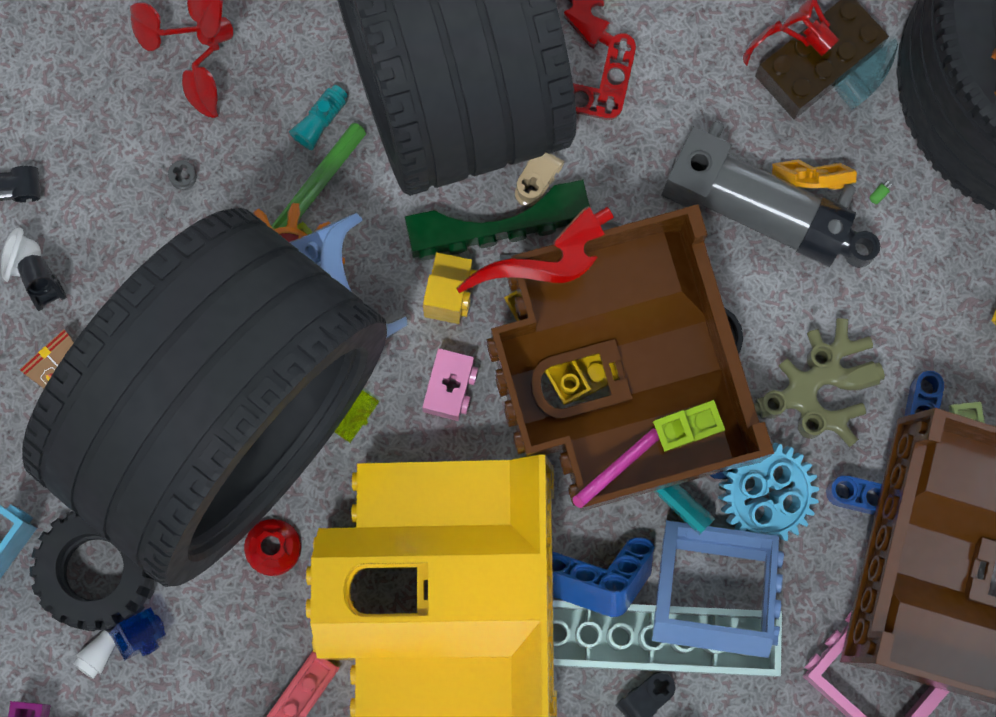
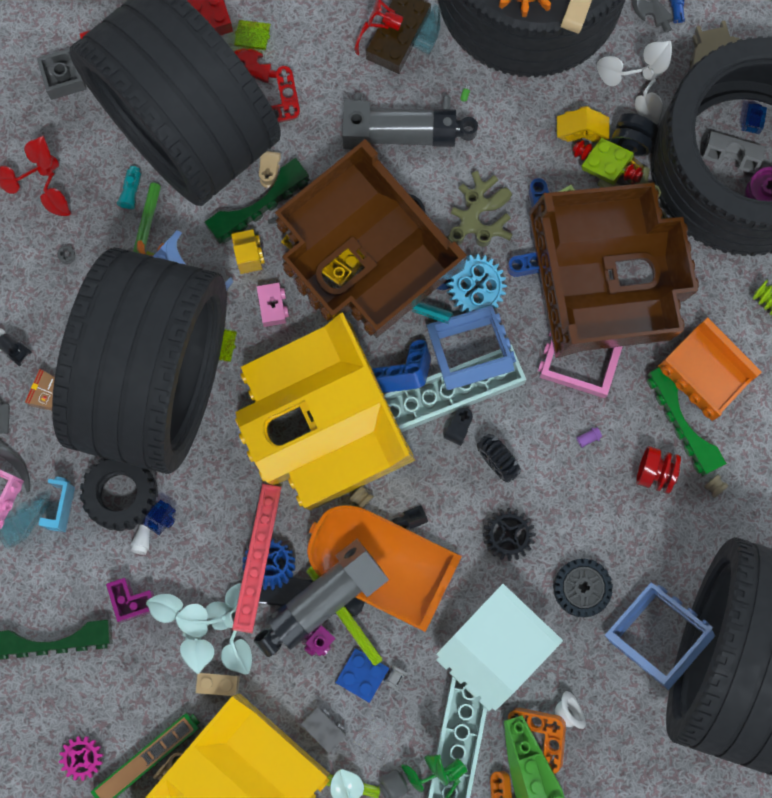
camera: 20 degrees left, 0 degrees up
(286, 556) = (220, 445): red piece -> none
(569, 267) = (310, 201): red piece -> none
(615, 468) = (385, 302): dark pink bar -> none
(689, 426) = (415, 264): lime slope -> none
(806, 176) = (419, 101): light orange plate -> none

